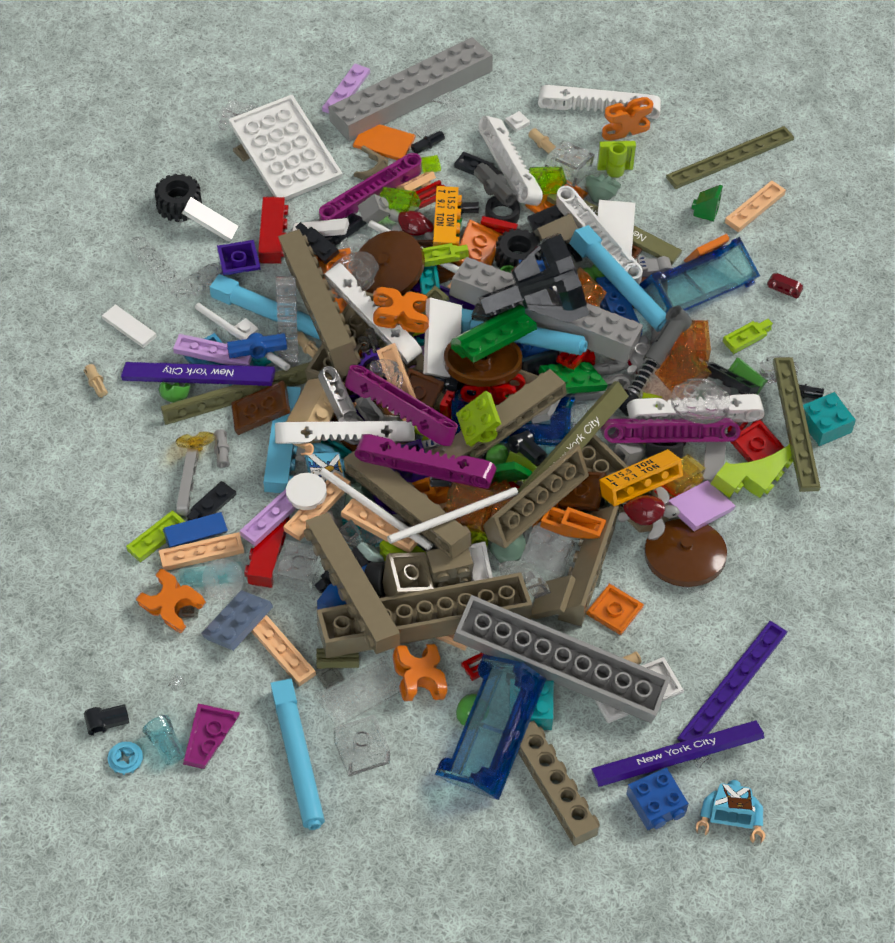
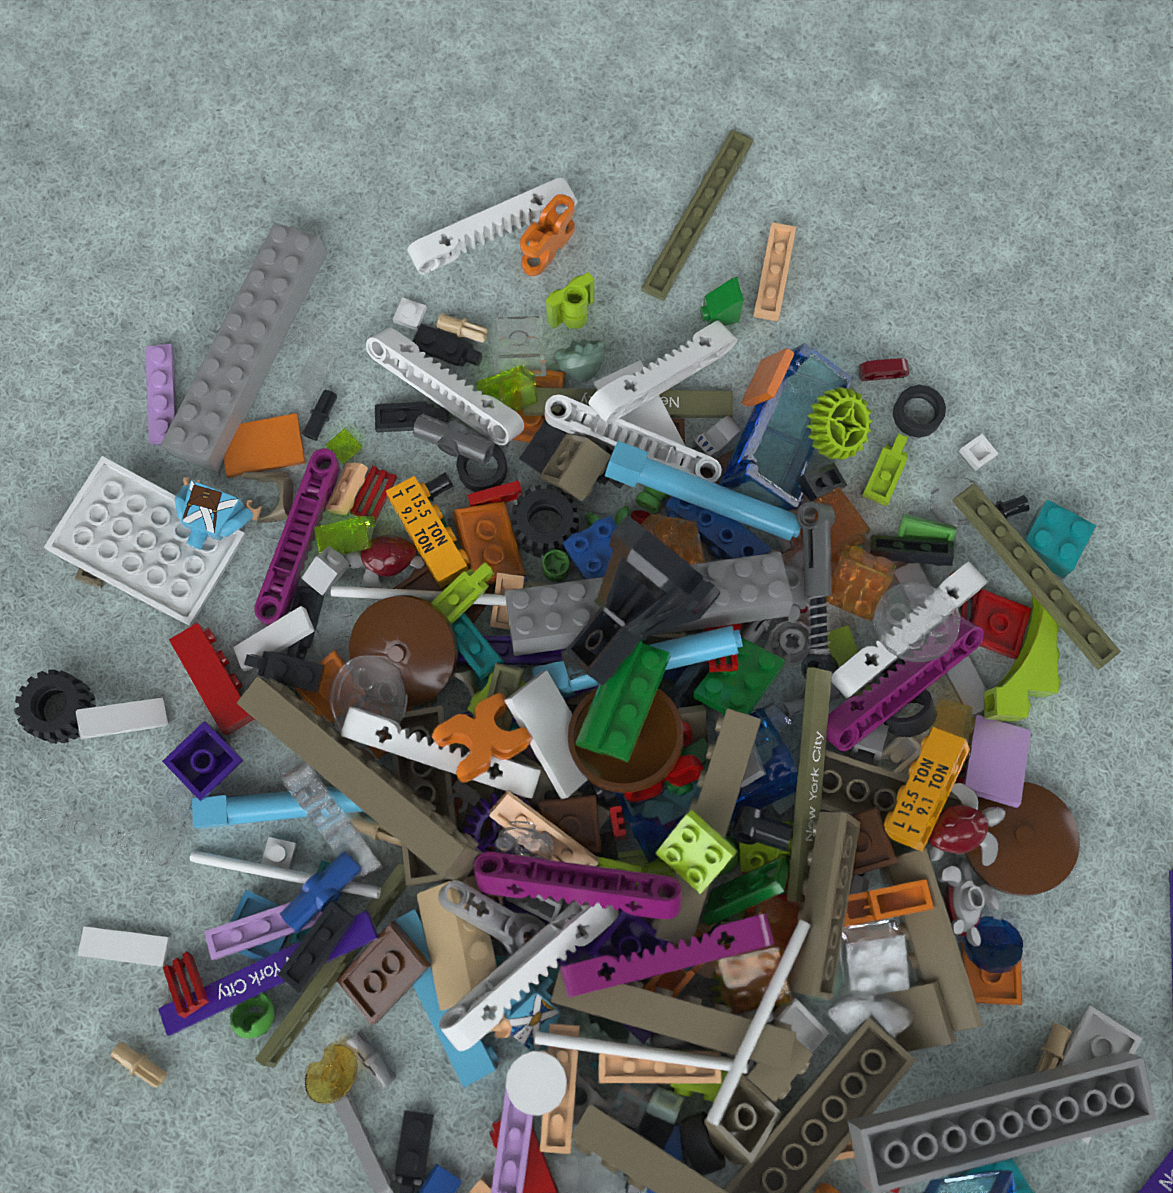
camera: 30 degrees left, 20 degrees up
(158, 351) = (169, 971): none -> red tile
(235, 367) = (317, 946): none -> black plate
(332, 151) = (211, 512): none -> torso
(526, 147) = (446, 347): none -> black hinge
(601, 205) = (634, 390): none -> white gear
(624, 558) = (965, 899): none -> light grey animal
(626, 591) = (999, 946): none -> clear blue tile
(699, 313) = (821, 482): none -> black plate
(722, 283) = (839, 423): none -> lime gear
(787, 326) = (908, 426): none -> black tyre
(813, 355) = (978, 452): none -> white plate

